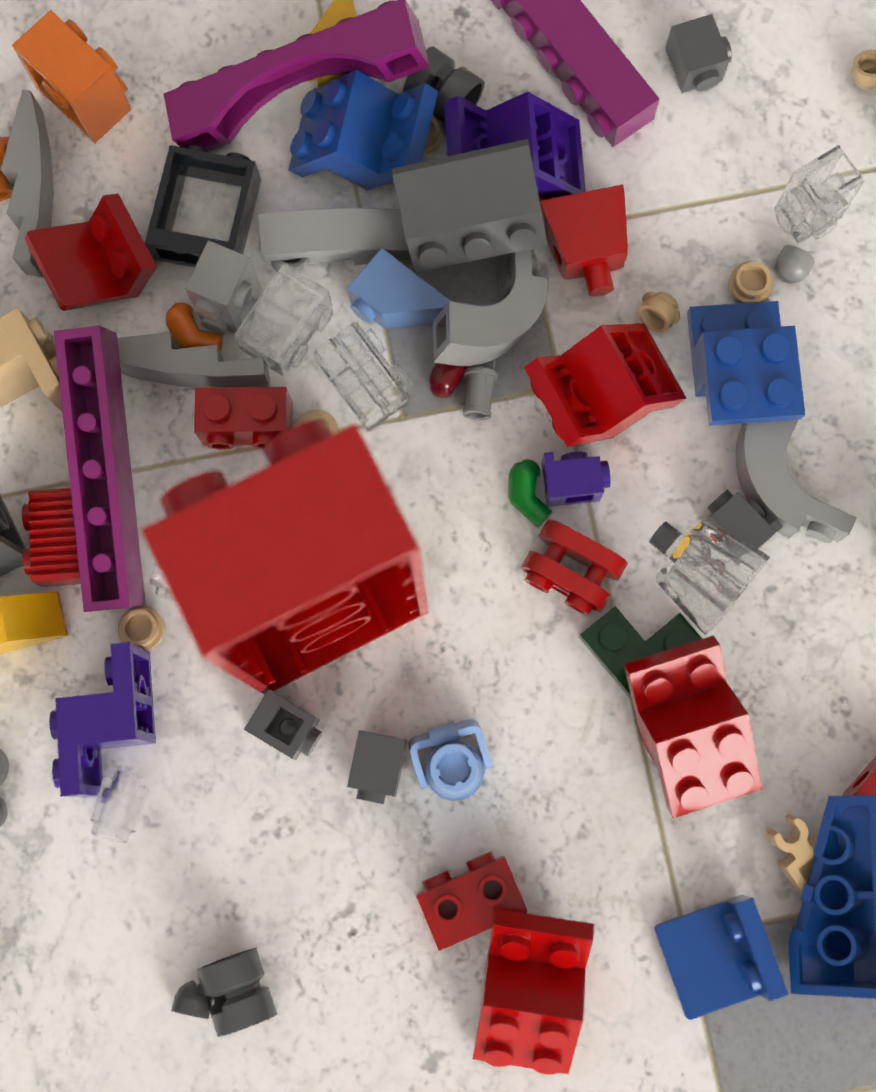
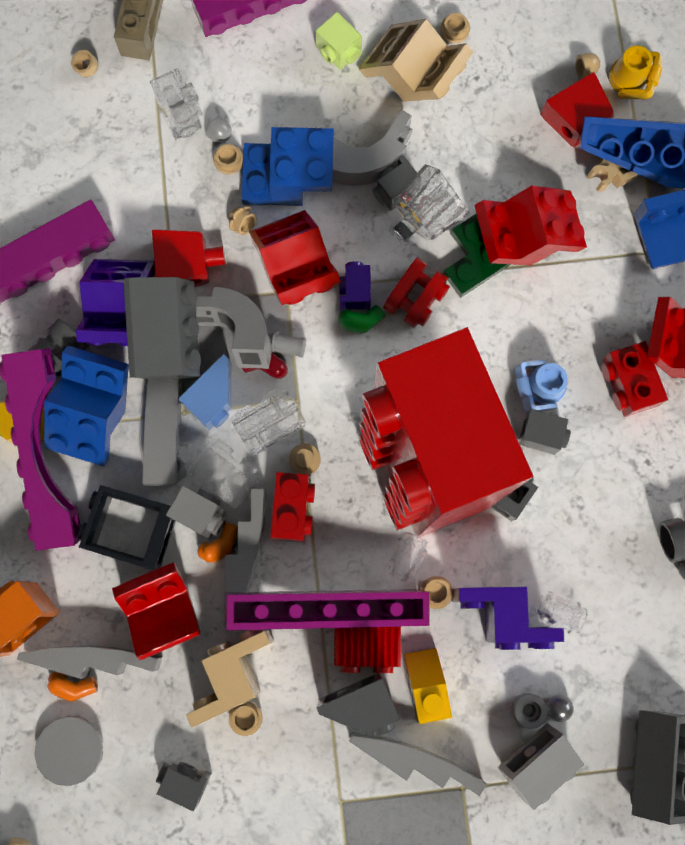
camera: 90 degrees left, 0 degrees up
(698, 54) = (57, 172): dark grey brick -> none

